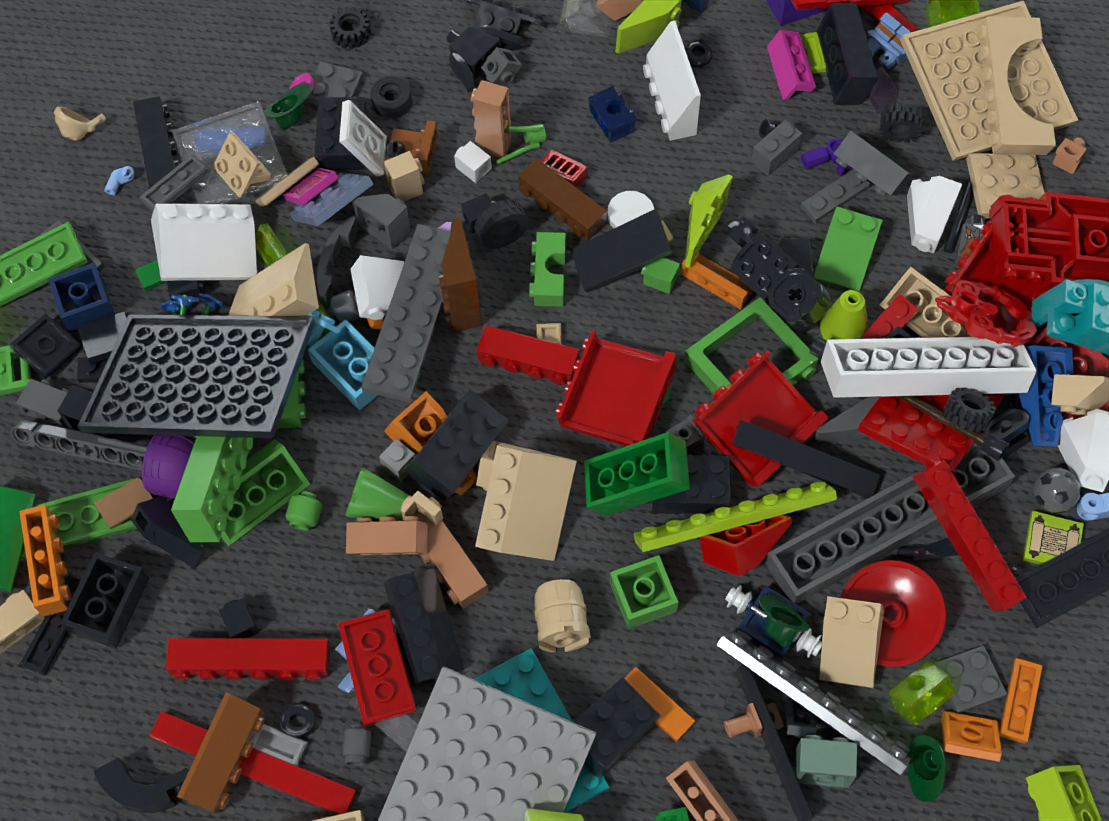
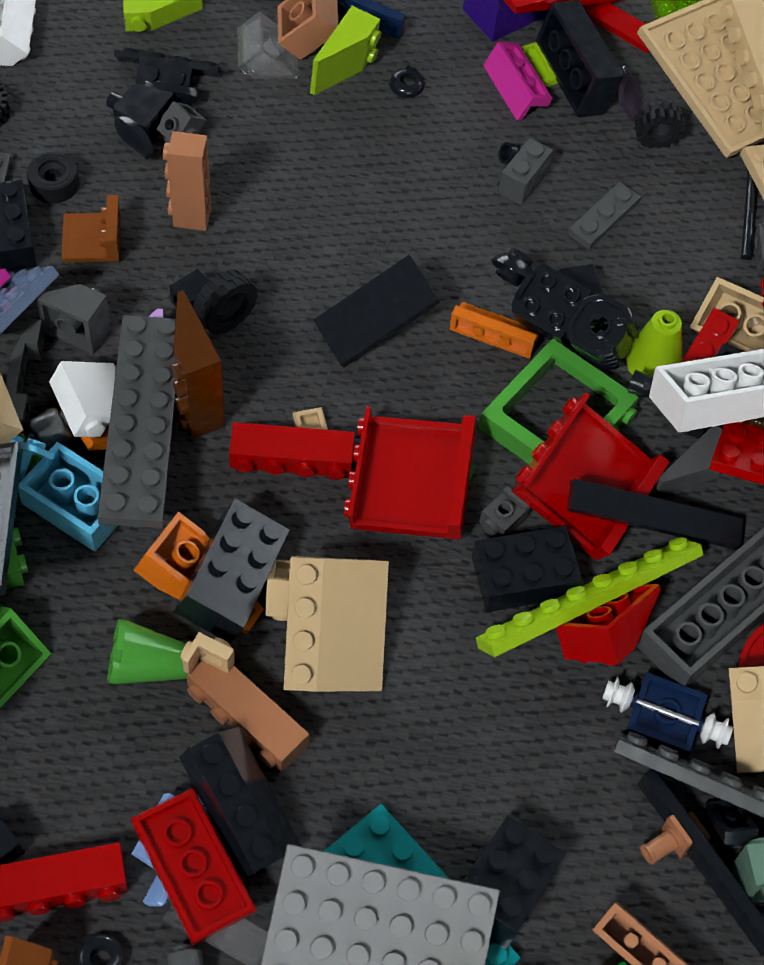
camera: 20 degrees left, 5 degrees down
(303, 511) = (51, 687): bright green head -> none
(363, 138) = (31, 225): white tile -> none
(387, 537) = (168, 698): nougat brick -> none
(390, 148) = (73, 243): black hinge -> none
(396, 459) = (158, 603): light grey brick -> none
(404, 176) = (92, 262): tan brick -> none
(472, 161) = (170, 237): white brick -> none
(533, 134) = (236, 196): bright green plant -> none
(548, 287) = (295, 367): bright green arch -> none
(561, 616) = (410, 755): tan piece -> none
(562, 199) = (289, 264): reddish brown brick -> none
(580, 171) = (286, 241): red slope -> none
(612, 114) = (324, 161): clear blue brick -> none
(627, 207) = (368, 262): white tile -> none
(636, 474) = (463, 565): green brick -> none
(643, 592) = (504, 707): bright green brick -> none
(661, 274) = (428, 332): bright green brick -> none
(673, 84) = (392, 115): white slope -> none
(673, 718) = (580, 857): orange tile -> none
(705, 211) = (462, 253): lime wedge -> none
(782, 619) = (680, 709): dark green piece -> none
(821, 155) = (591, 168): dark purple bar -> none
(847, 249) = (637, 268): bright green slope -> none
(870, 164) = (639, 172): dark grey slope -> none
(887, 38) = (622, 39): medium blue hips -> none
(929, 210) = (718, 213): white slope -> none

